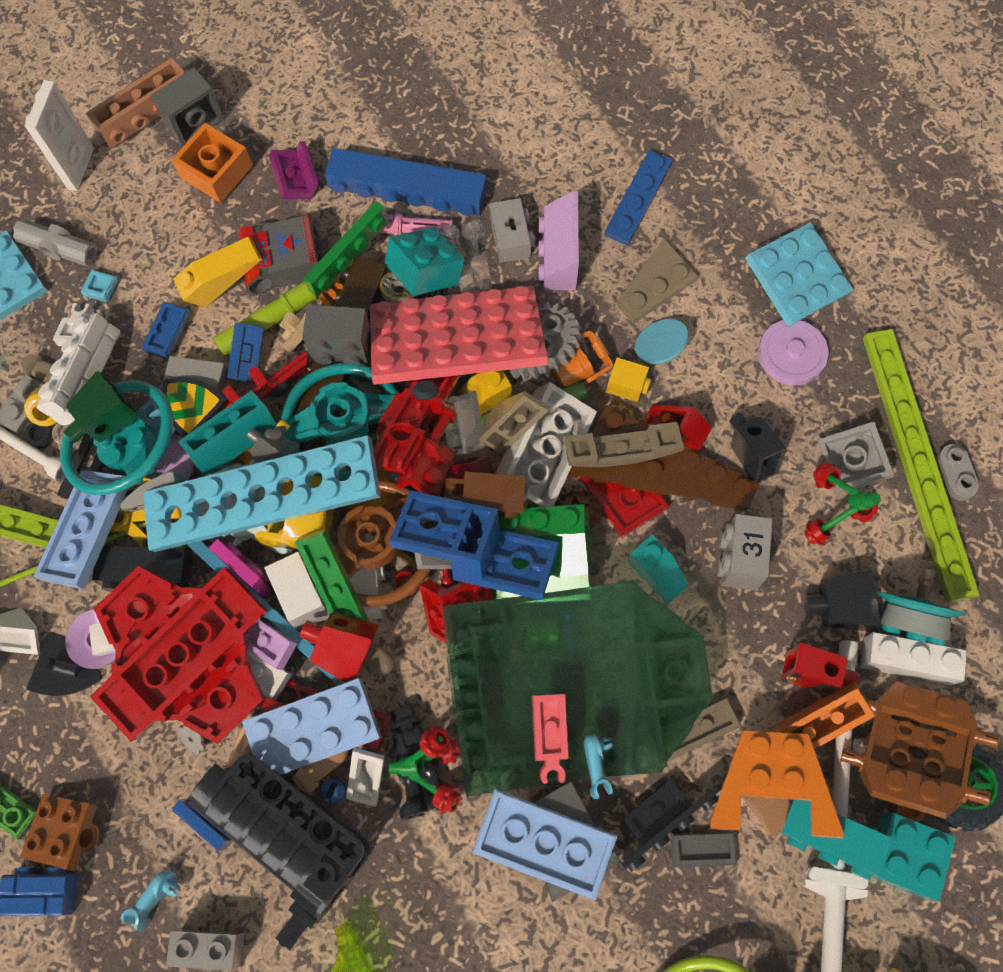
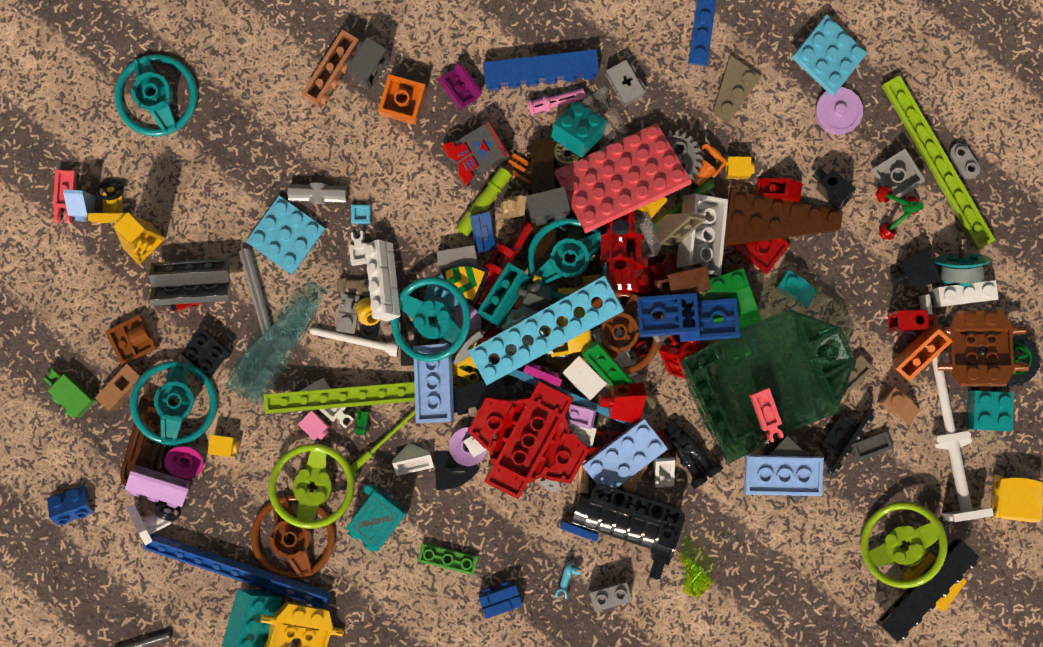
camera: 20 degrees left, 15 degrees up
(59, 135) = (298, 121): white plate -> none
(61, 832) = (498, 562): dark orange plate -> none
(98, 410) = (415, 307): dark green torso -> none
(166, 330) = (421, 231): blue plate -> none
(215, 273) = (443, 181): yellow slope -> none
(337, 795) = (641, 485): blue hinge -> none
(349, 245) = (528, 131): green plate -> none
(433, 744) = (705, 443): red plant -> none
(560, 243) = (663, 84): lavender slope -> none
(593, 752) = (795, 415): medium azure piece -> none
(623, 448) = (754, 219): dark tan slope -> none
(661, 341) = (752, 133): medium azure piece -> none
(745, 552) = (847, 261): light grey brick -> none
(776, 768) = (905, 388): orange wing -> none
(859, 847) = (947, 416): teal brick -> none

